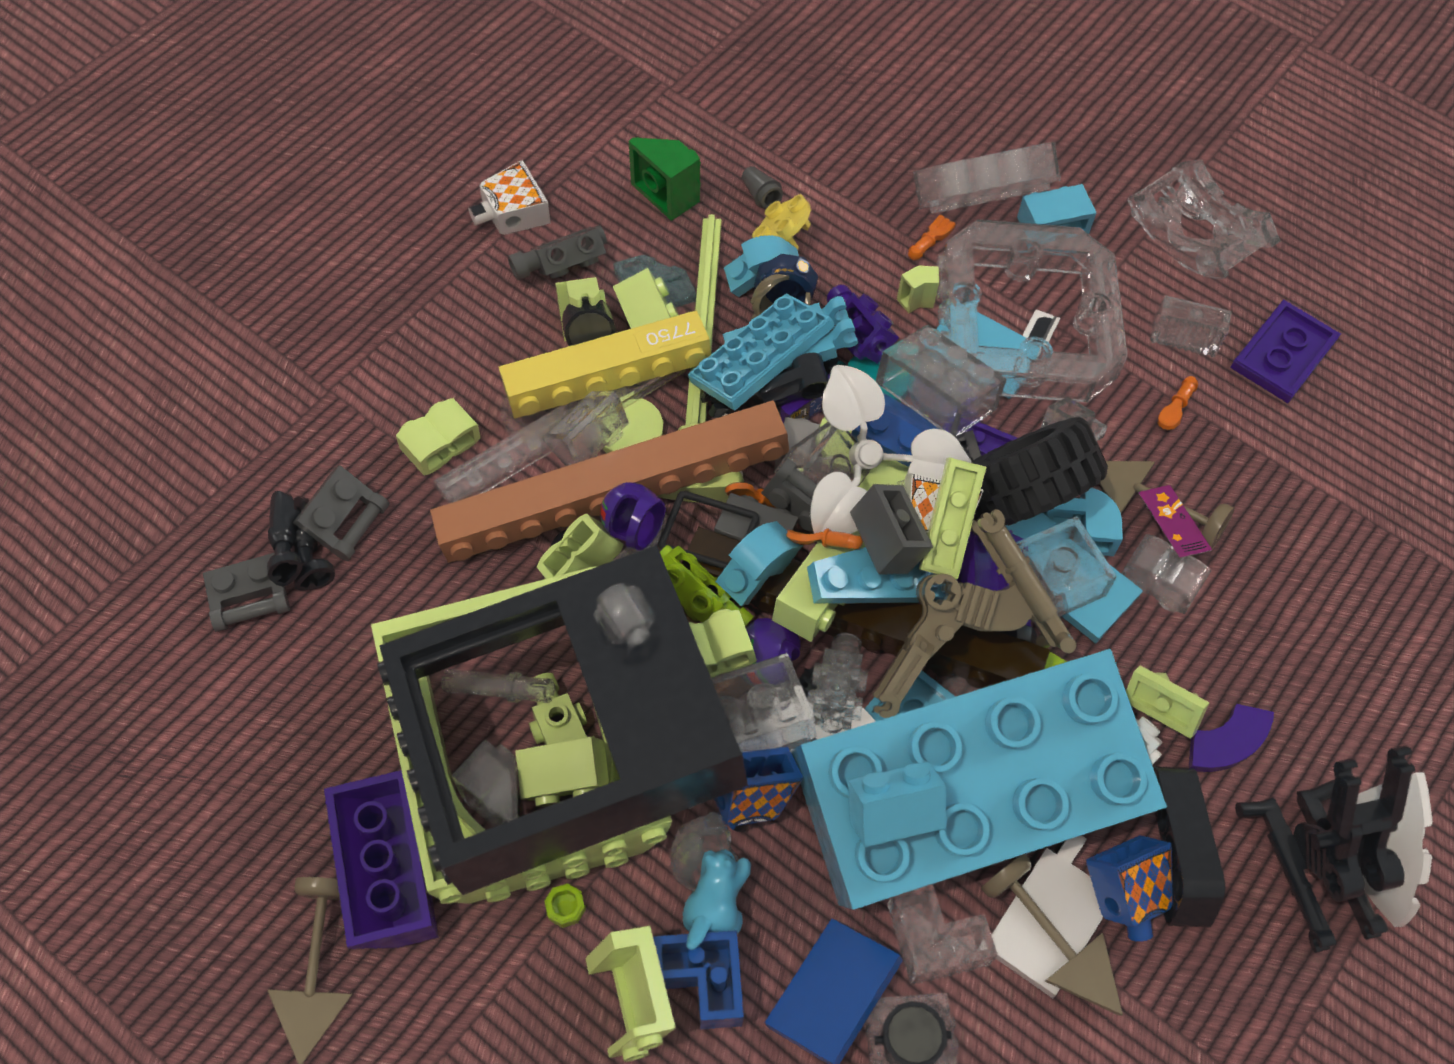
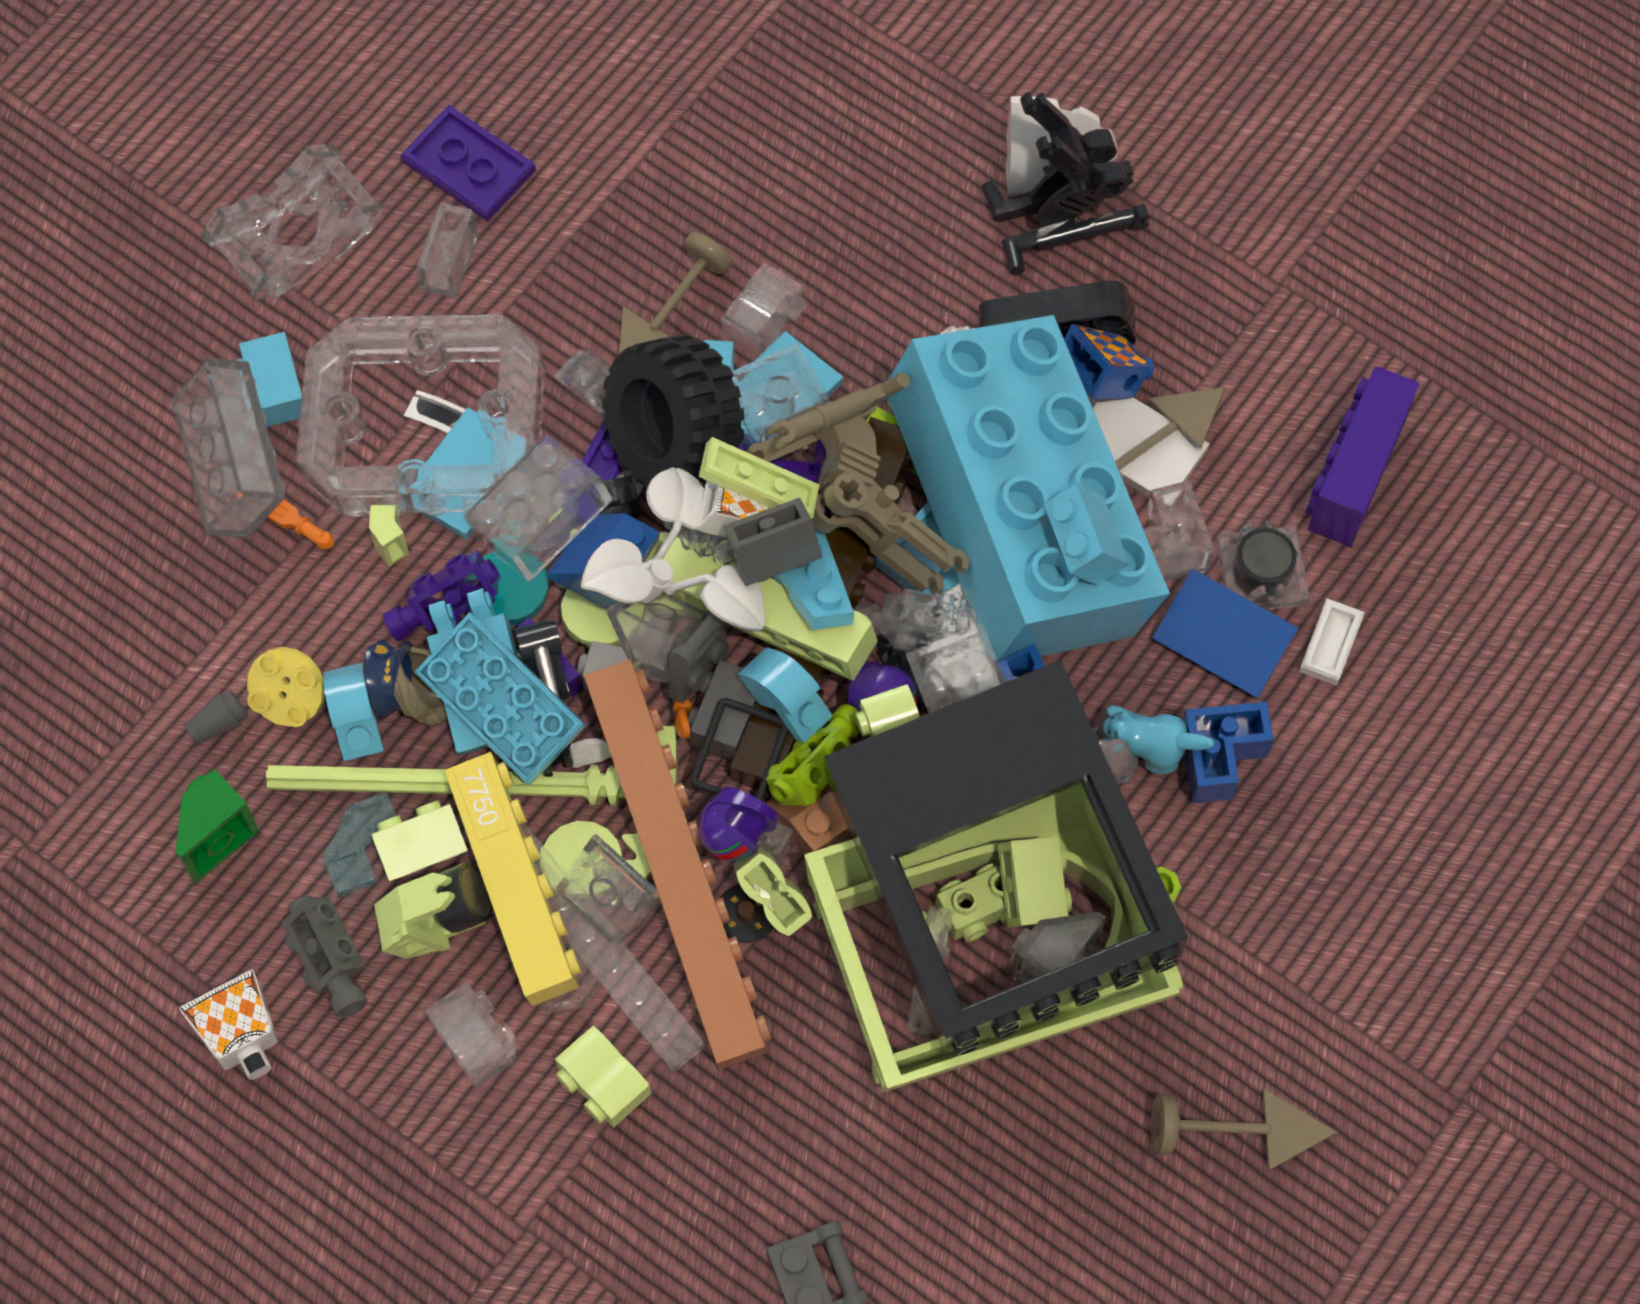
camera: 90 degrees left, 5 degrees up
(285, 535) = (752, 1226): black piece -> none
(332, 505) = (710, 1182): dark grey plate -> none
(378, 864) = (1135, 1061): dark purple slope -> none
(484, 347) = (472, 1034): none -> clear brick
(624, 615) = (919, 773): clear head -> none
(639, 987) = (1249, 802): yellowish green panel -> none
(828, 538) = (771, 610): orange piece -> none
(1166, 701) = (914, 319): yellowish green tile -> none
(1171, 415) = (556, 285): orange piece -> none
(1175, 521) = (704, 291): magenta sticker -> none
(1231, 742) = (944, 269): dark purple tile -> none

